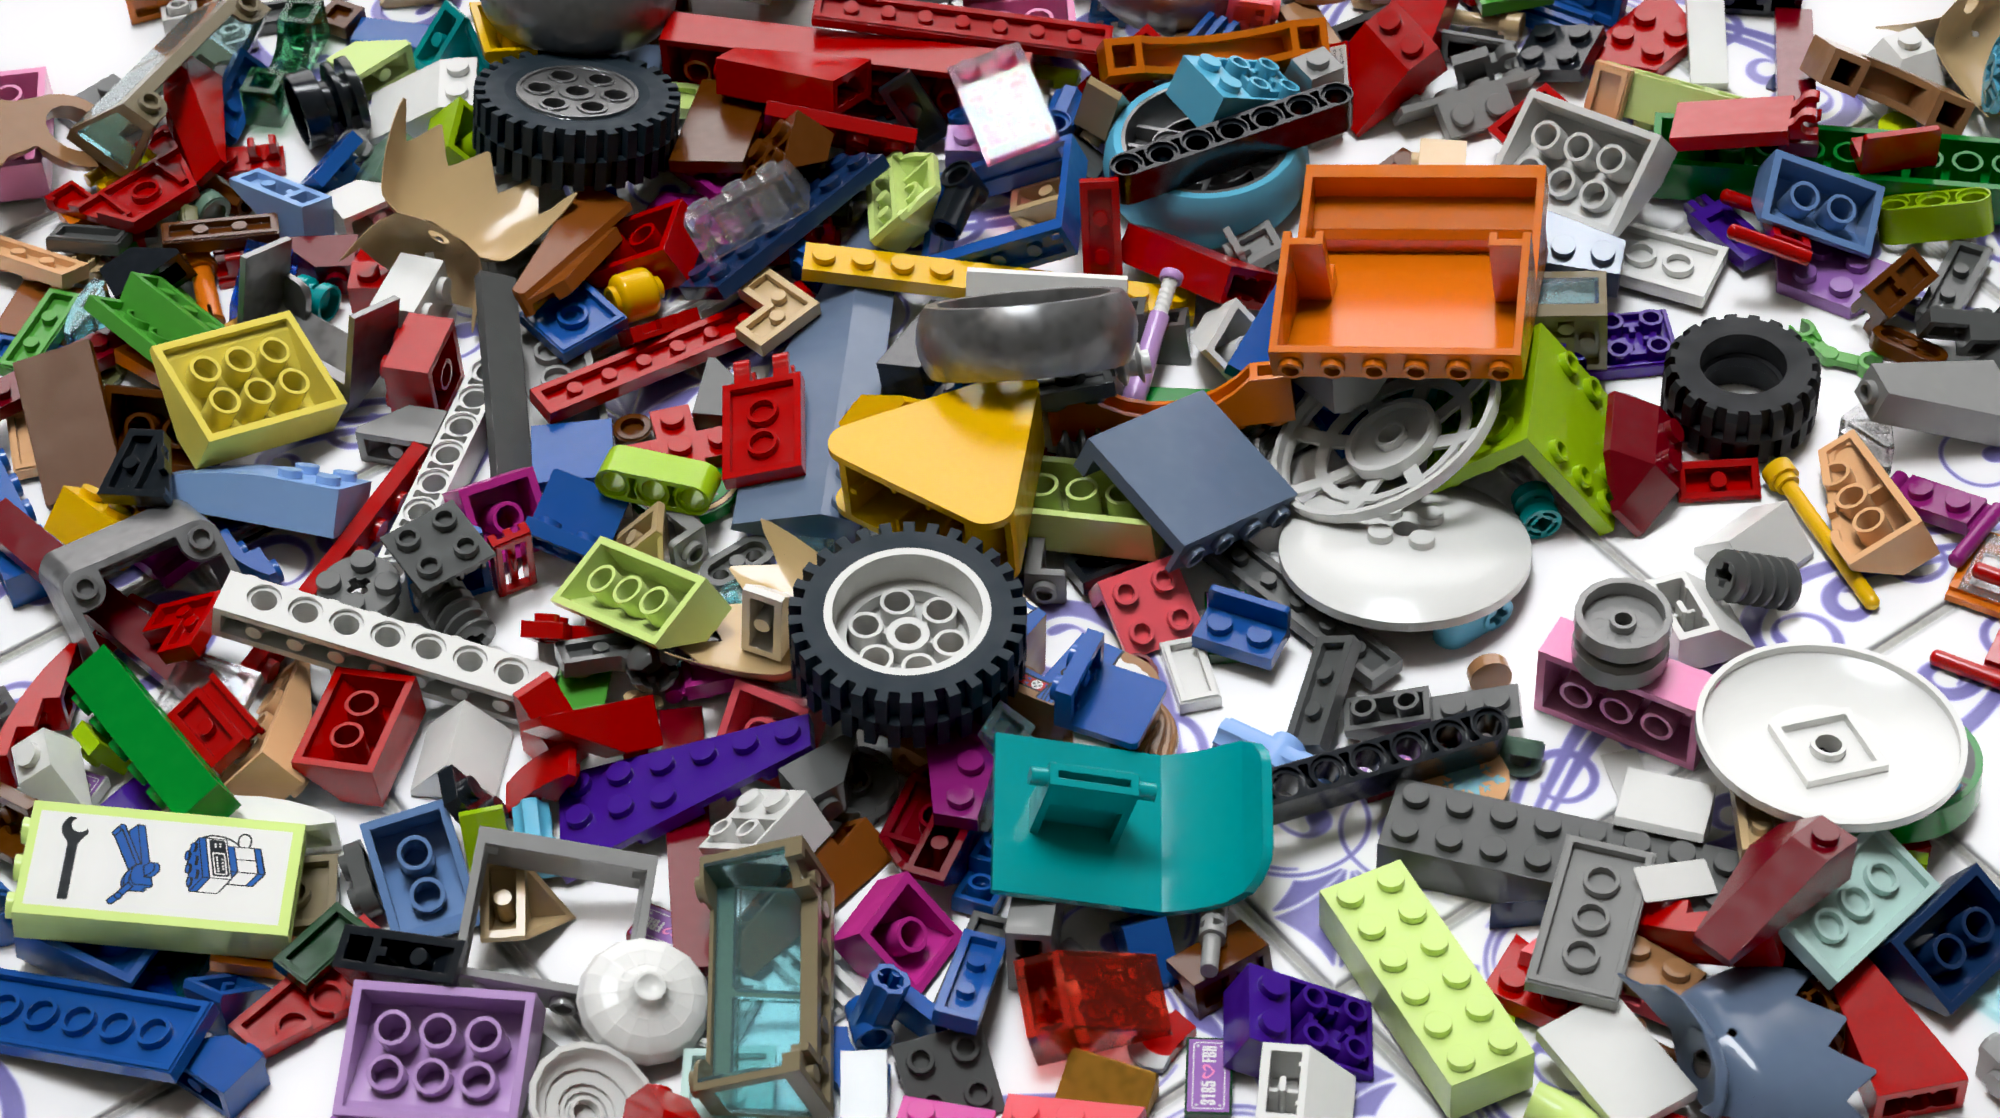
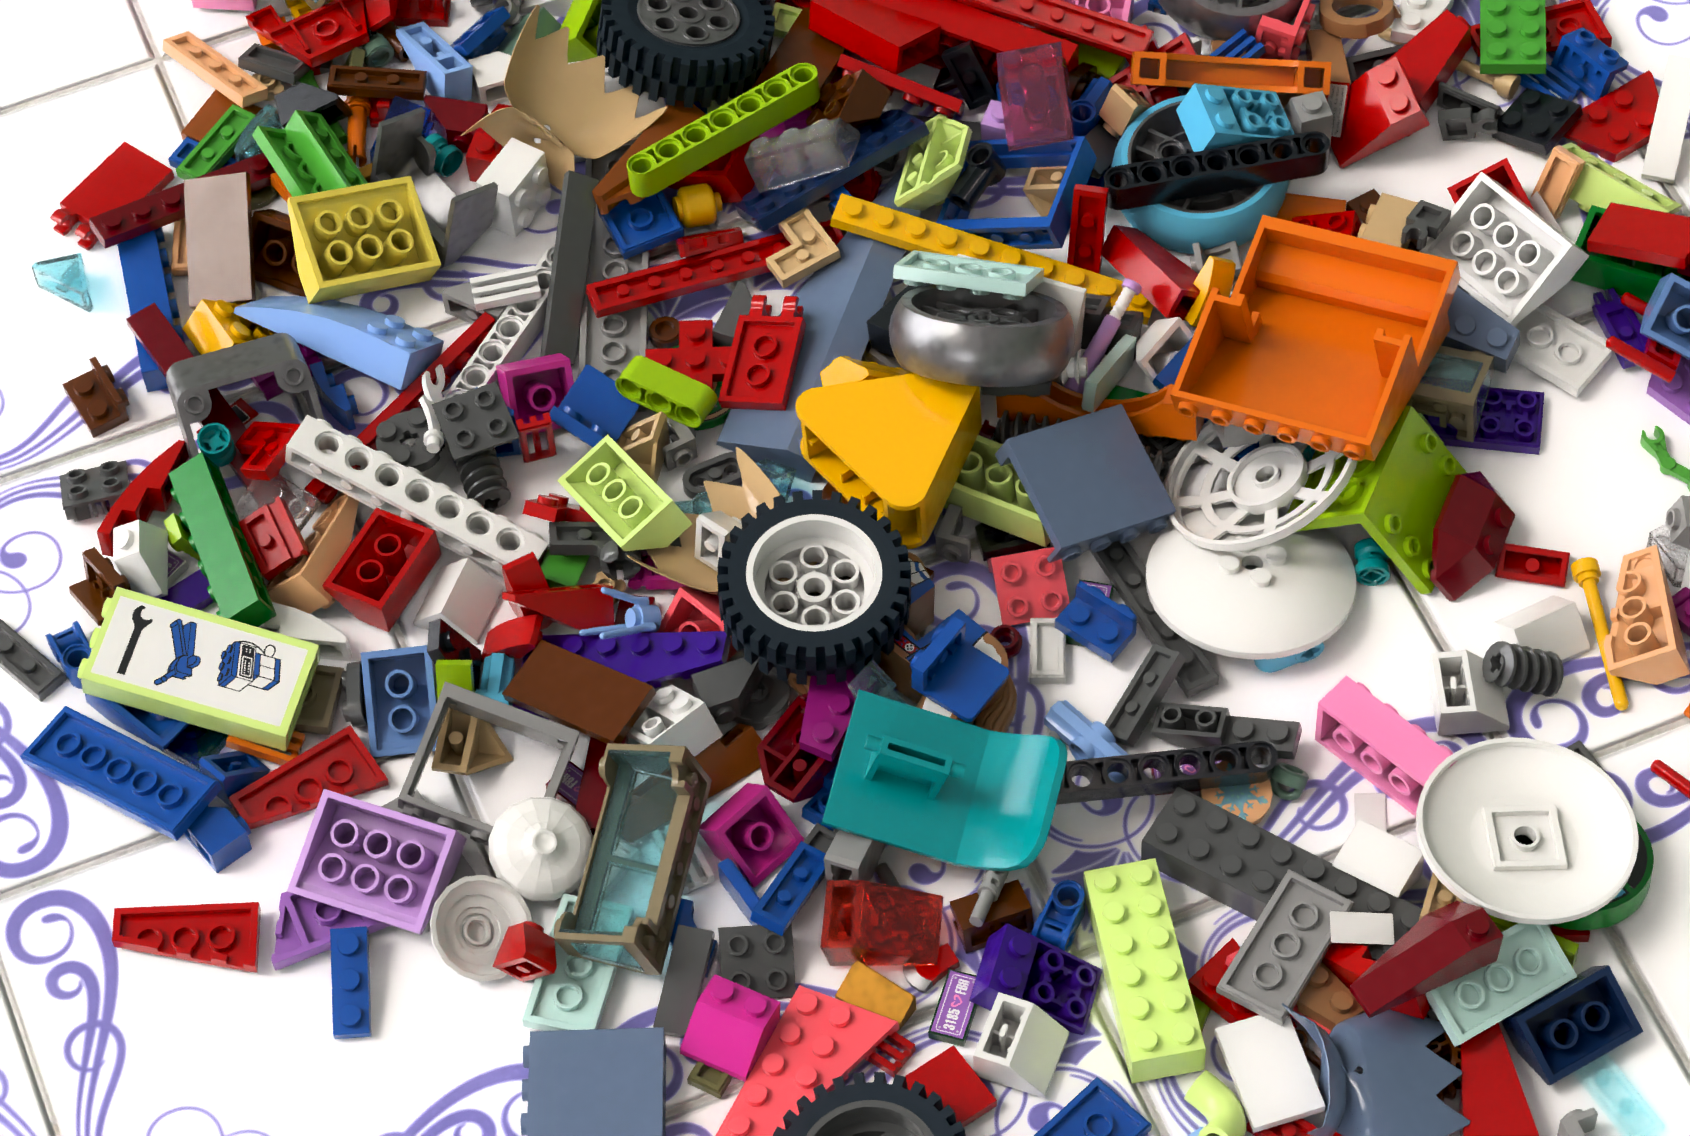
camera: 15 degrees right, 10 degrees up
(120, 633) = (212, 438): none -> teal wheel
(140, 471) = (261, 302): black wing -> none
(313, 951) = (311, 748): dark green tile -> none
(390, 573) = (433, 437): none -> white piece
(398, 956) = (362, 776): black slope -> none
(423, 363) = (508, 239): brick -> none
(432, 411) = (505, 283): none -> white tile
(570, 447) = (607, 345): tile -> none
(647, 814) = (579, 693): none -> reddish brown tile
(649, 201) = (723, 130): none -> lime beam
(691, 725) = (638, 619): none -> light blue plant
(875, 1009) = (715, 895): blue piece -> none
(974, 282) = (977, 275): none -> light aqua plate
(1146, 935) = (941, 880): blue slope -> none
(1171, 370) = (1108, 373): none -> light aqua tile
(1263, 257) = (1215, 273): none -> yellow slope
(1305, 954) = (1058, 922): none -> blue piece
(1469, 109) = (1443, 163): light grey bracket -> none
(1484, 149) = (1425, 221): none -> dark grey plate
(1489, 671) = (1284, 704): medium nougat tile -> none
(1517, 914) = (1235, 920): dark blue sticker -> none
(1621, 633) = (1383, 707): light grey wheel -> none
(1746, 354) = (1584, 451): black tyre -> none

